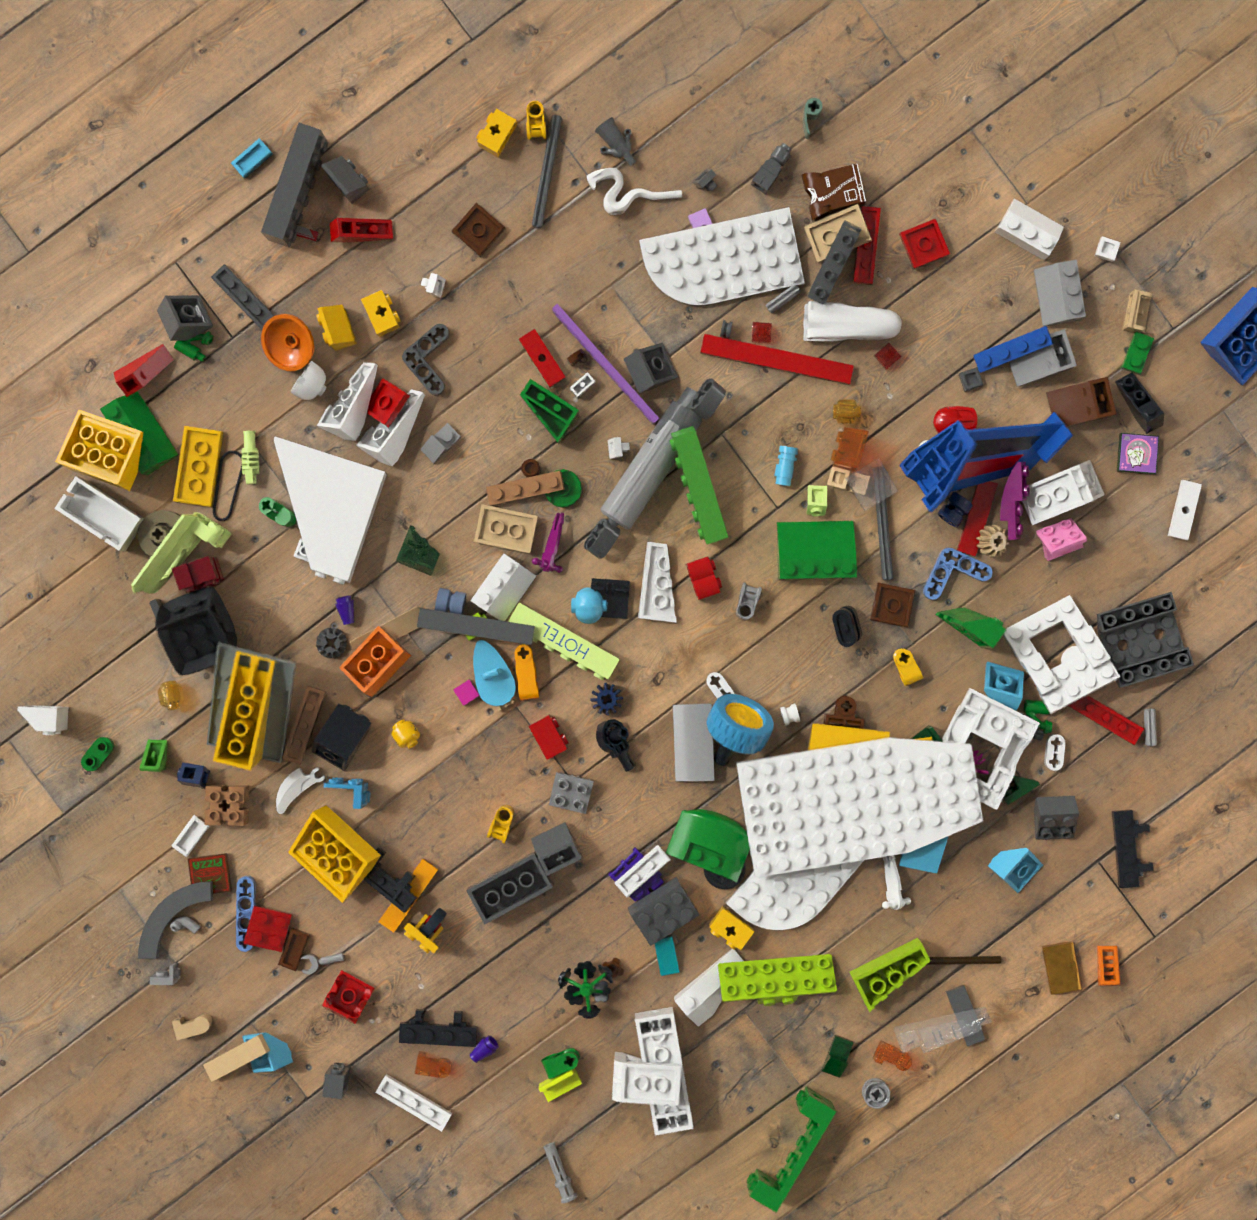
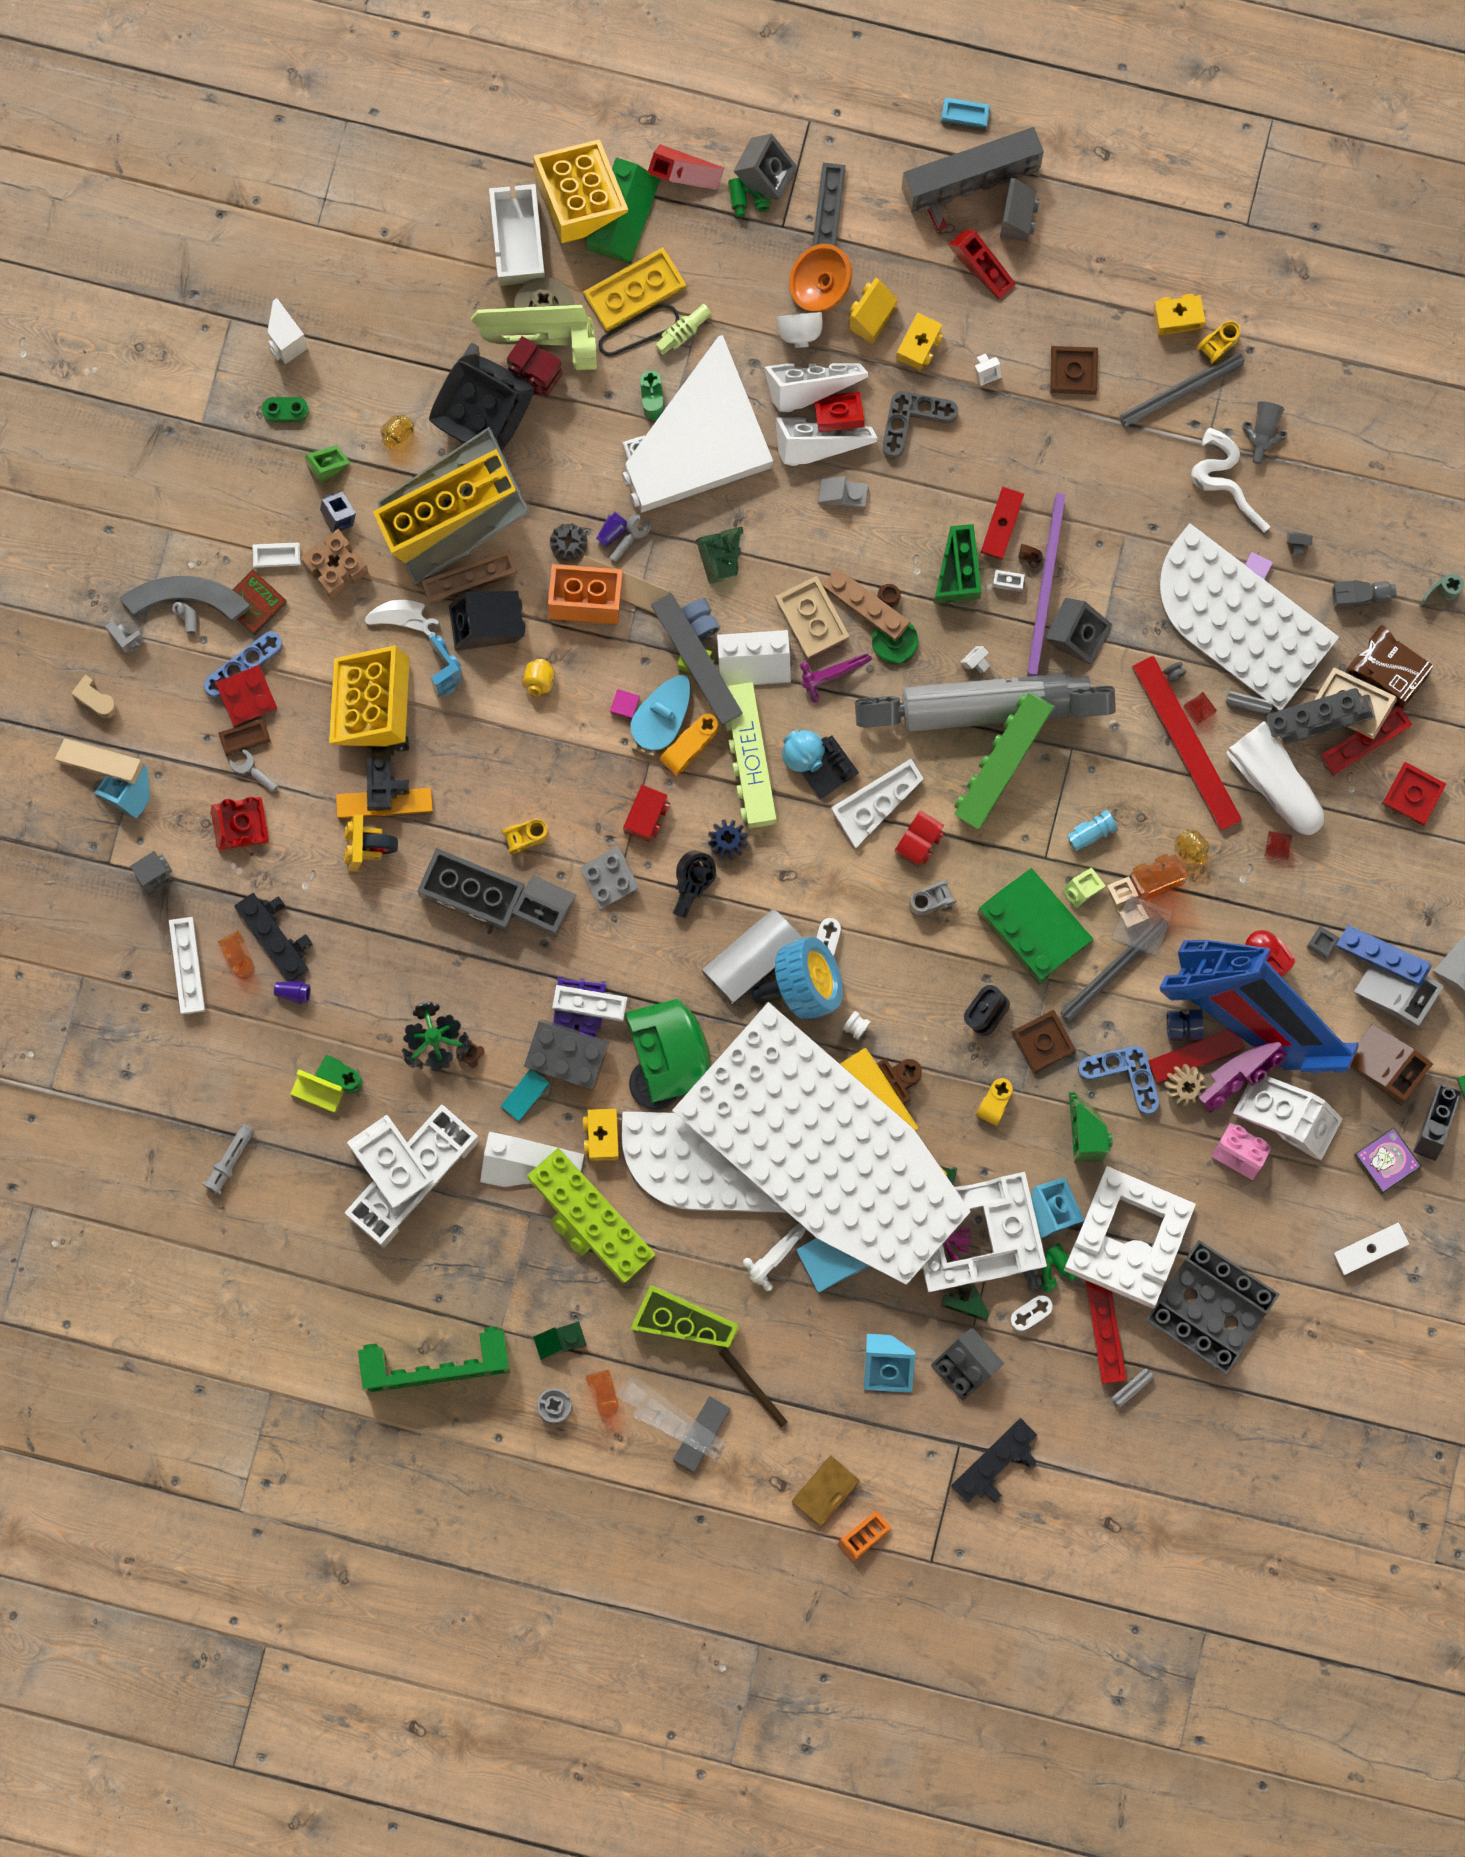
camera: 50 degrees right, 10 degrees down
(361, 594) = (634, 531): none -> light grey piece

